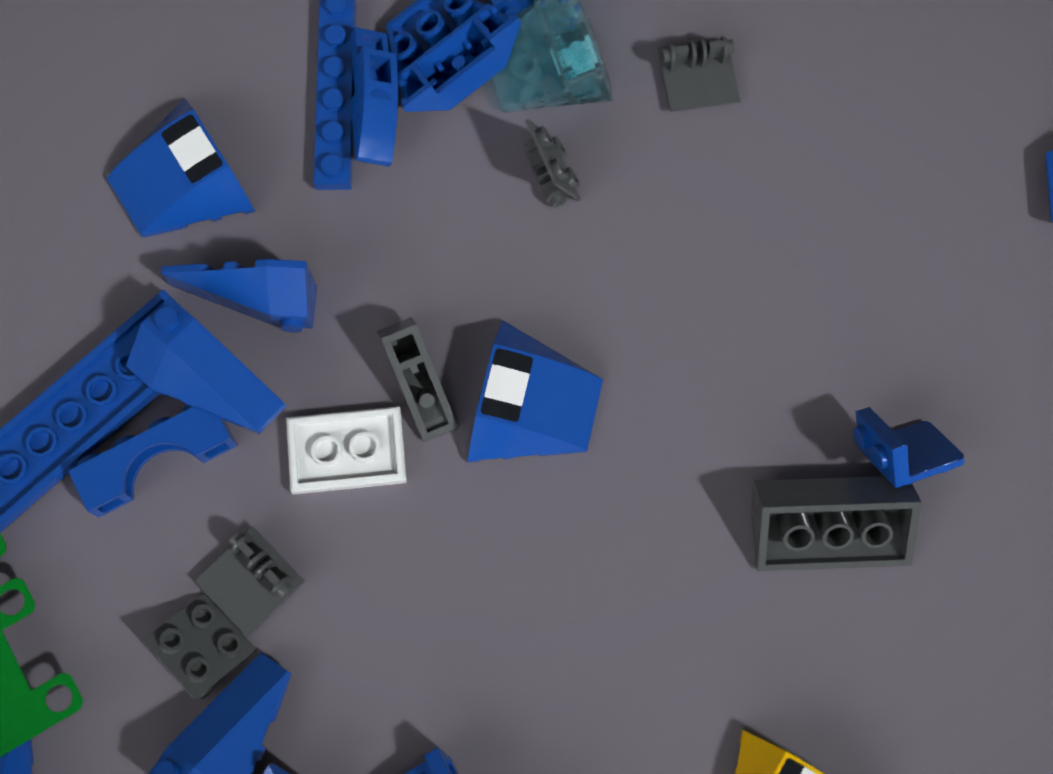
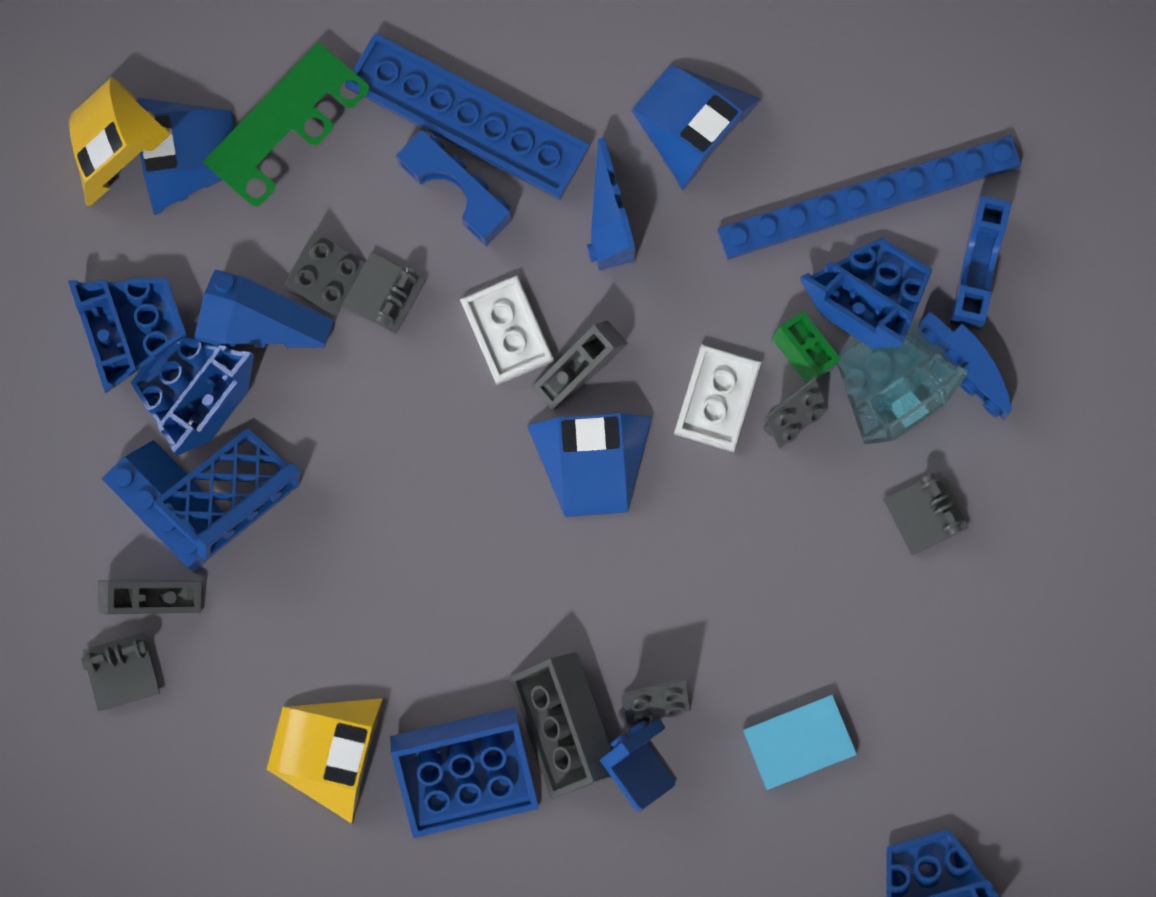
camera: 80 degrees right, 5 degrees up
(188, 363) = (527, 195): blue wedge -> none
(375, 97) = (809, 250): blue slope -> none
(482, 133) = (805, 347): none -> green hinge
(504, 244) = (717, 398): none -> white tile
(832, 396) = (656, 701): none -> dark grey hinge
(858, 656) = (463, 772): none -> blue slope
(914, 276) = (799, 742): none -> medium azure tile

